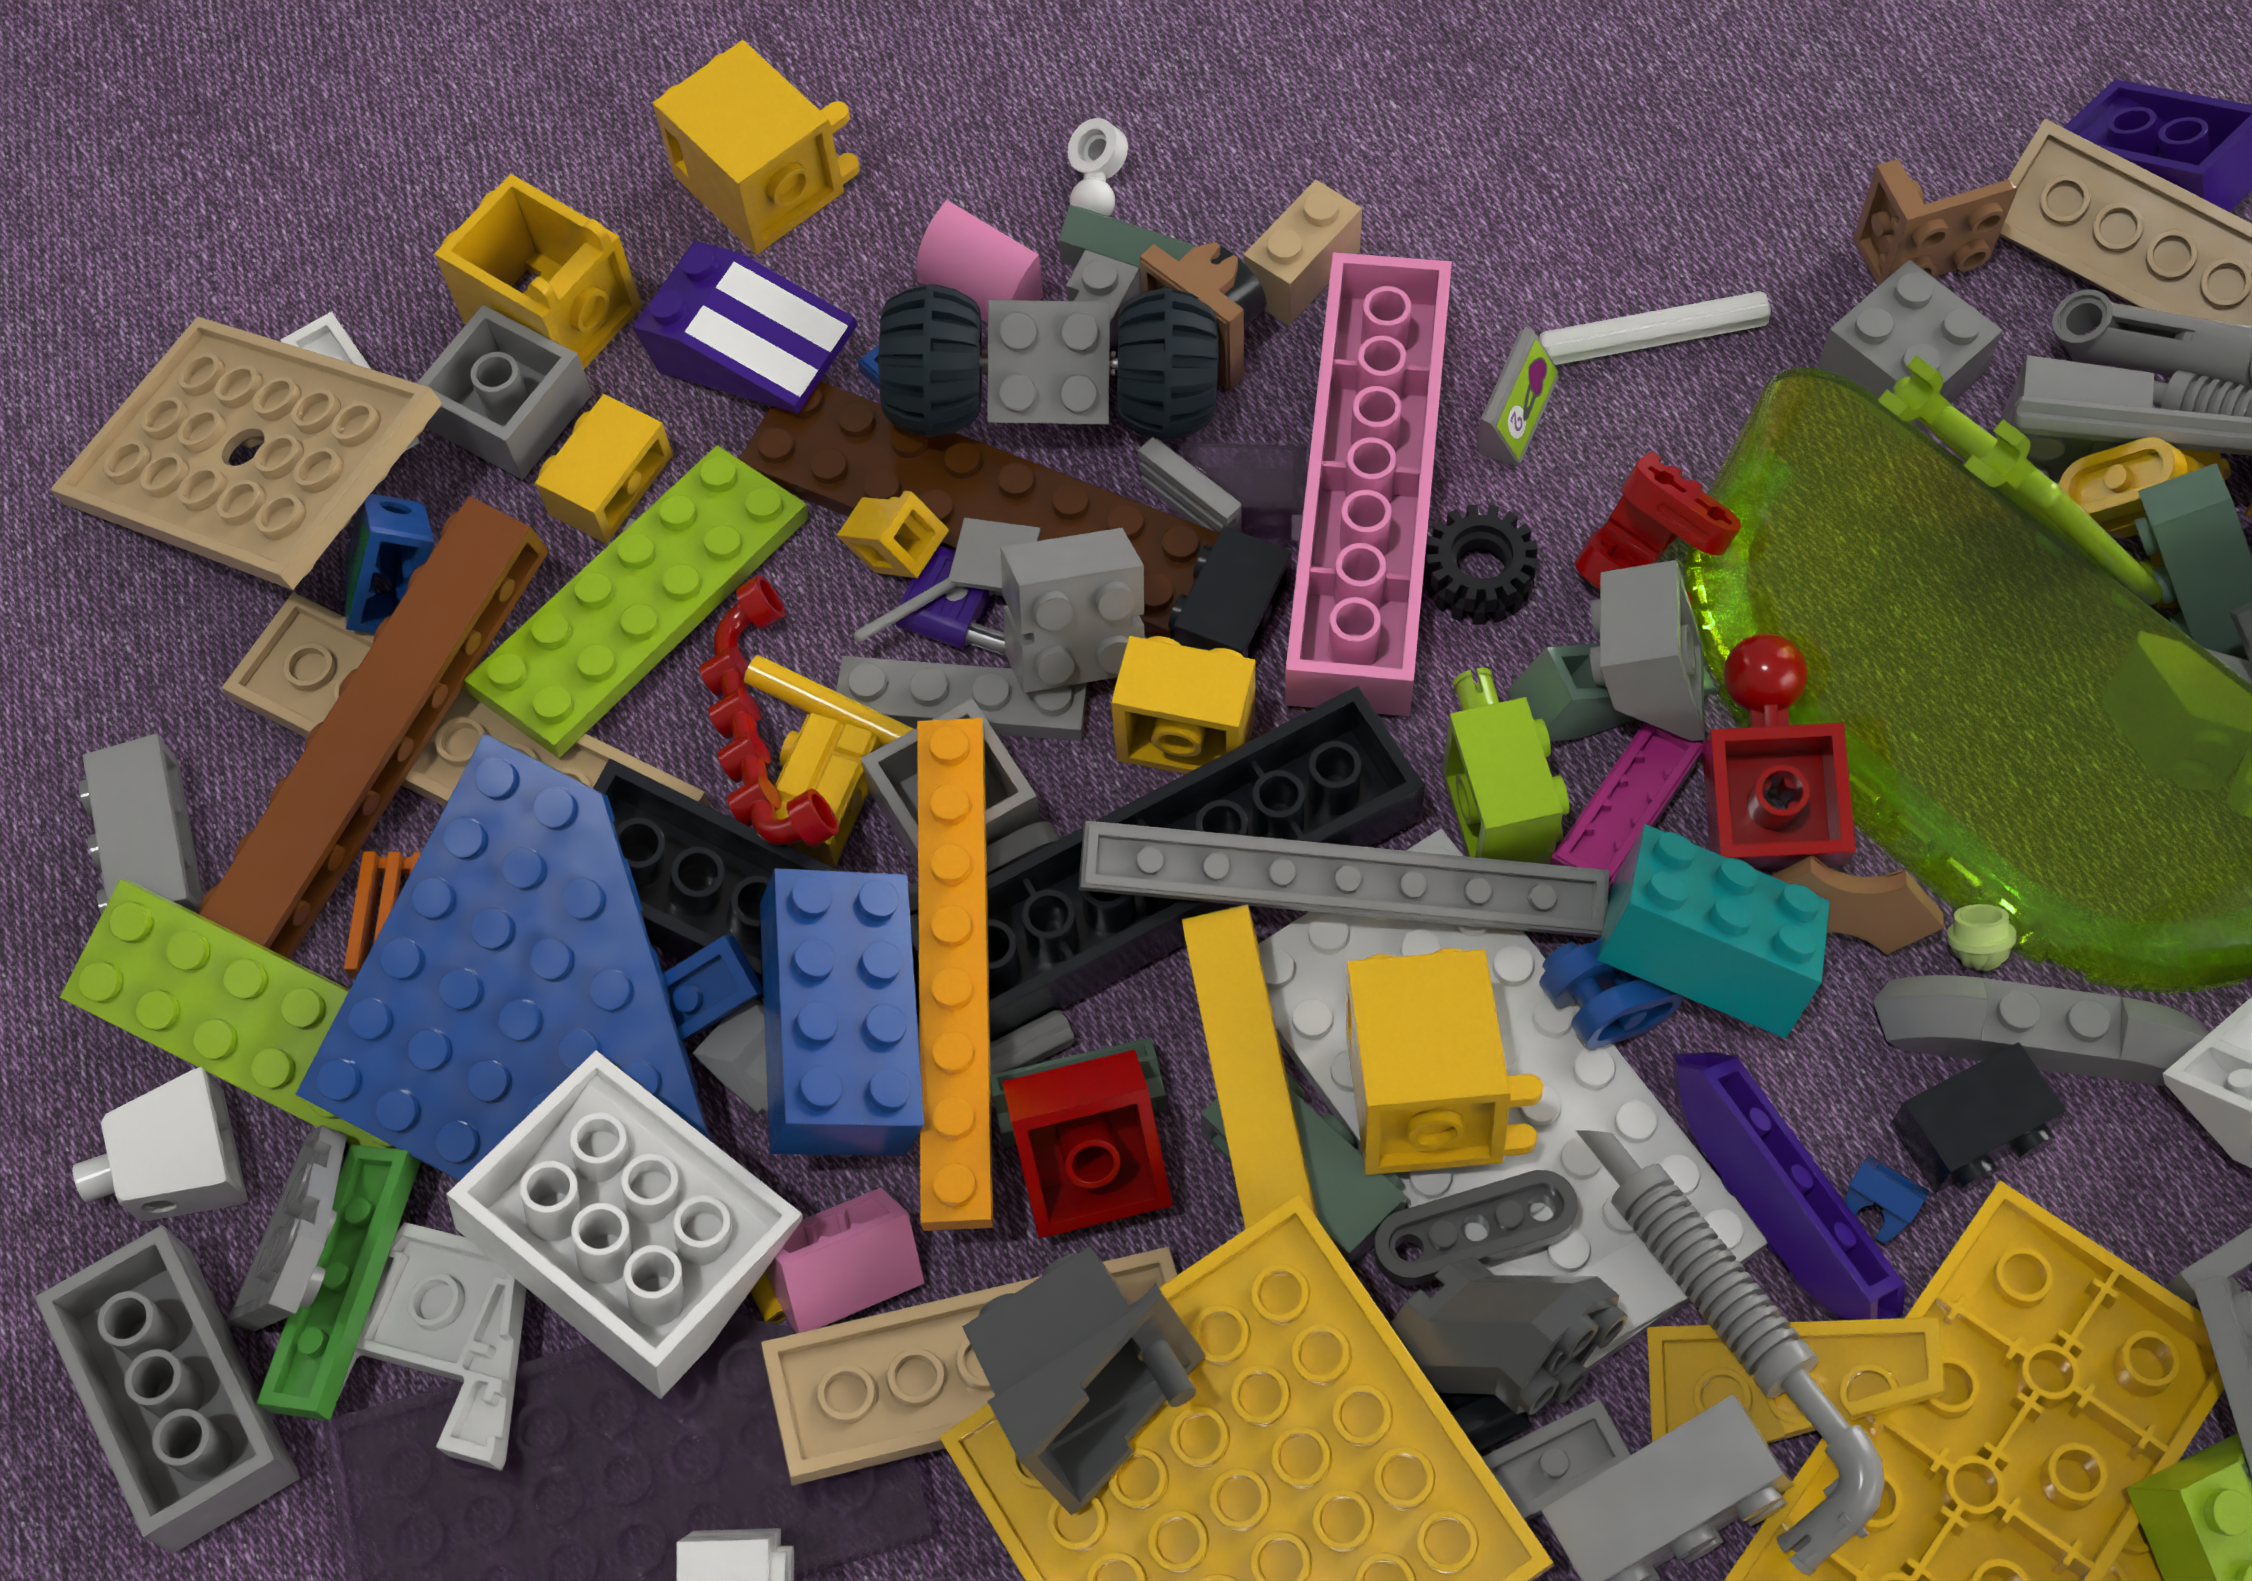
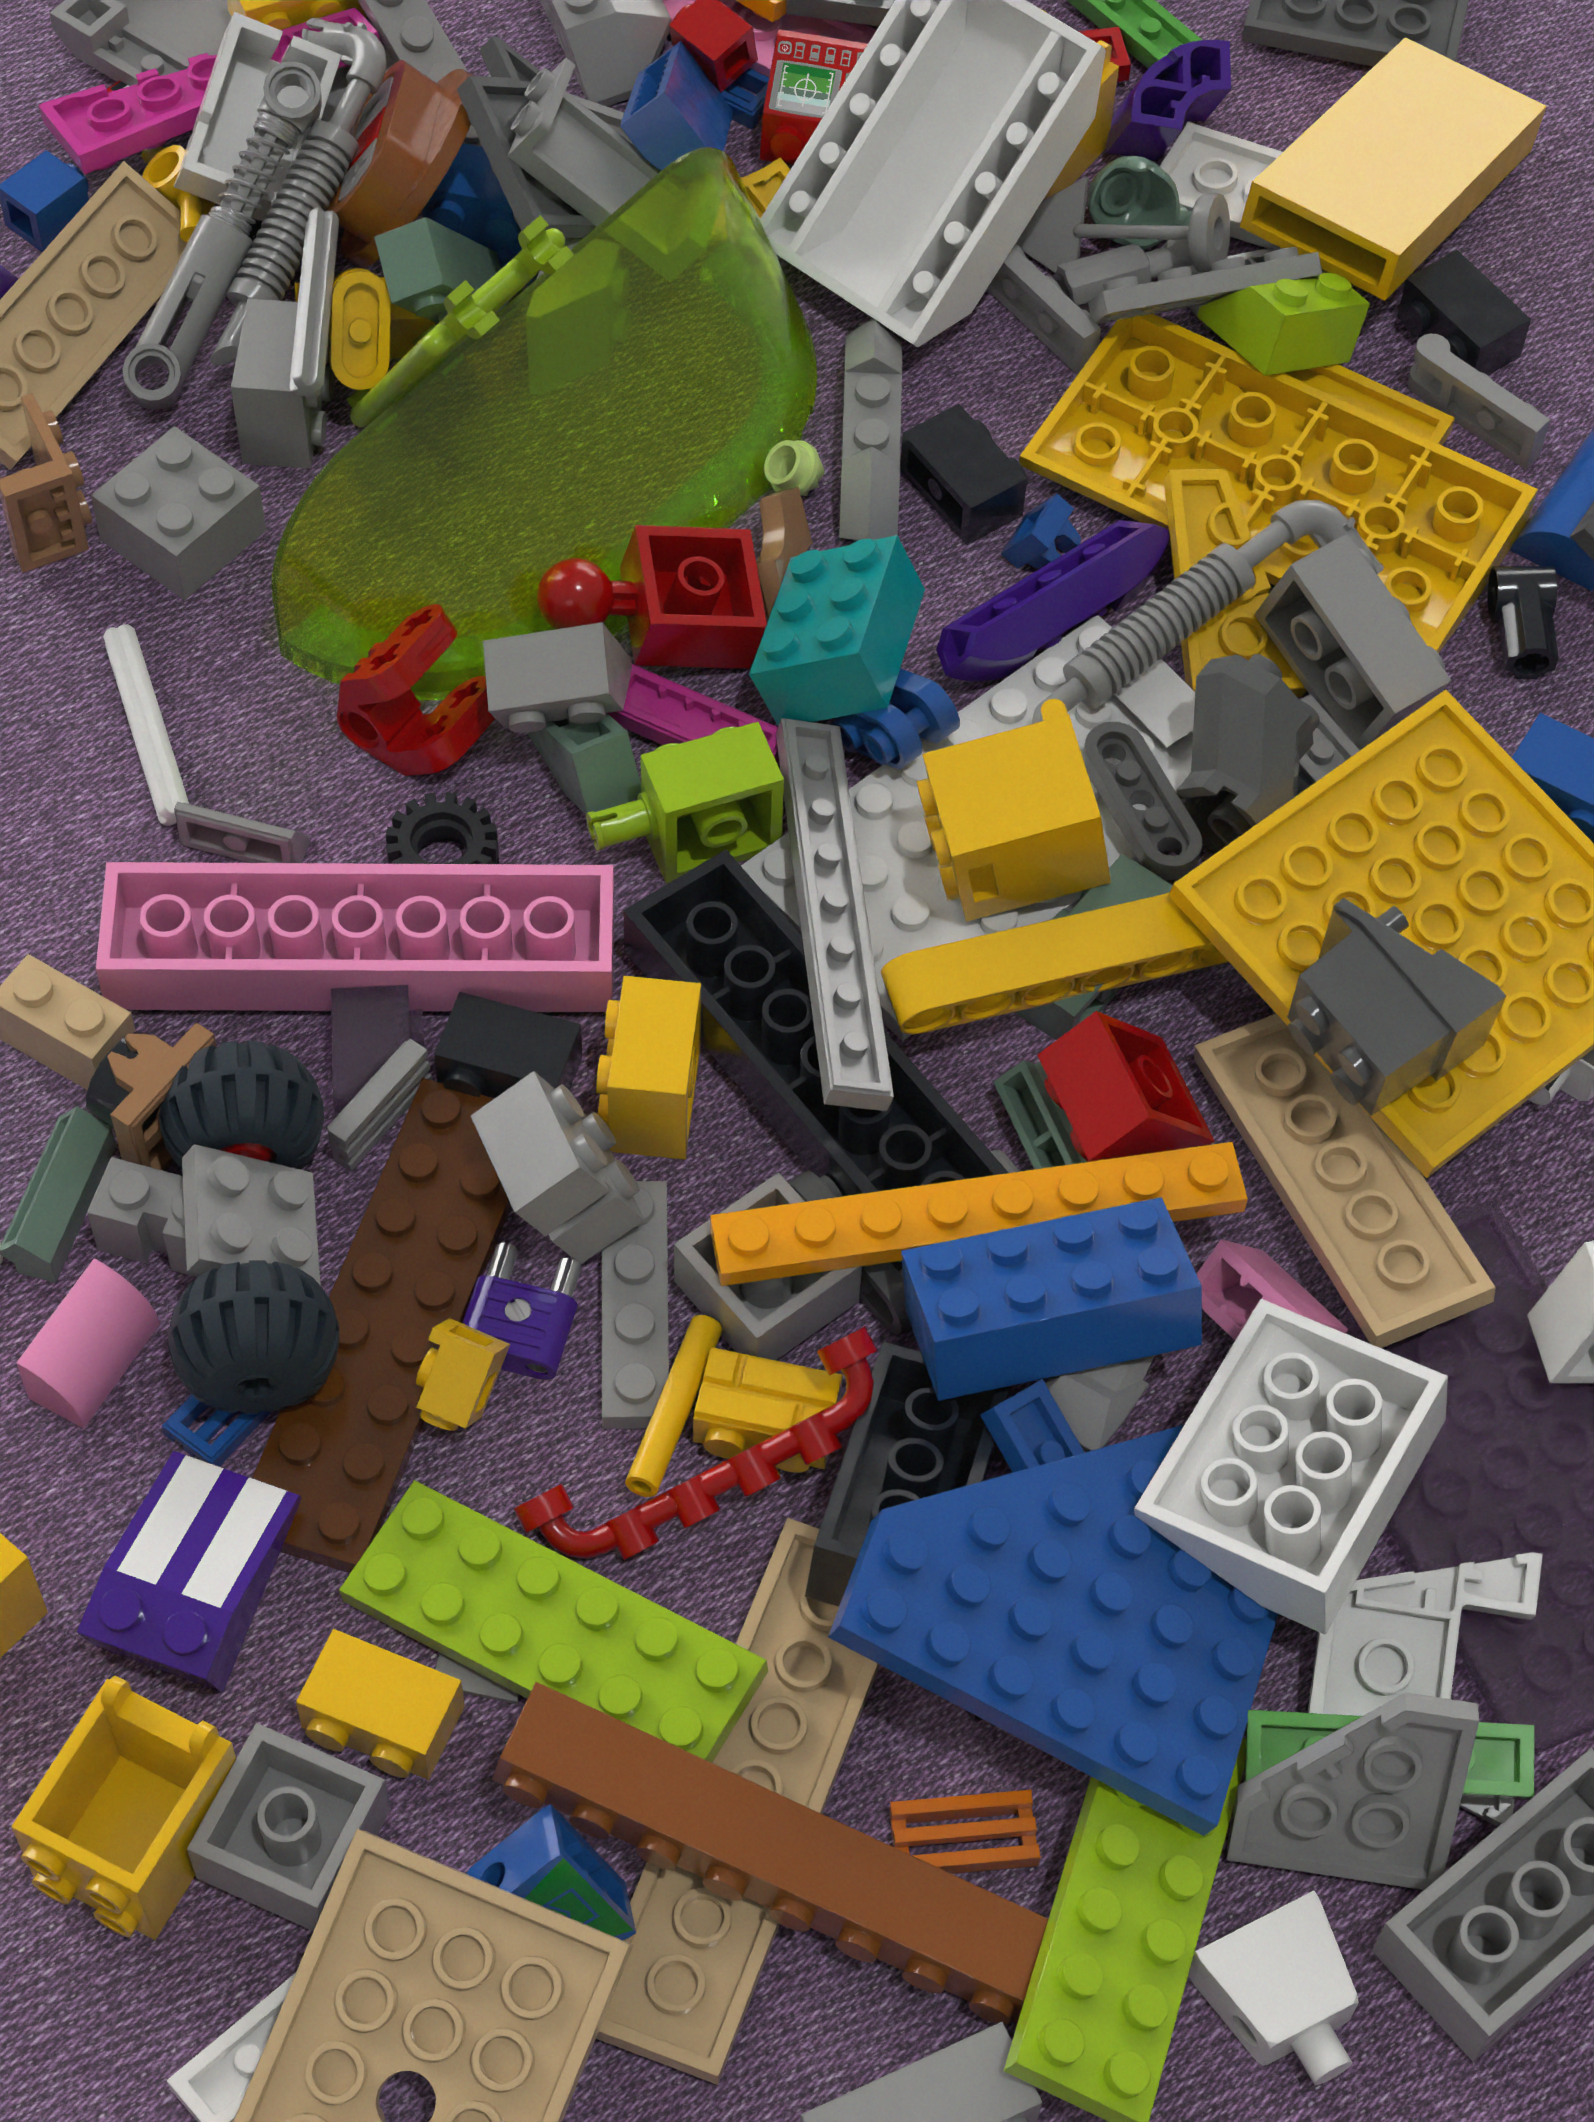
camera: 105 degrees left, 5 degrees down
(974, 566) = (482, 1277): light grey piece -> none

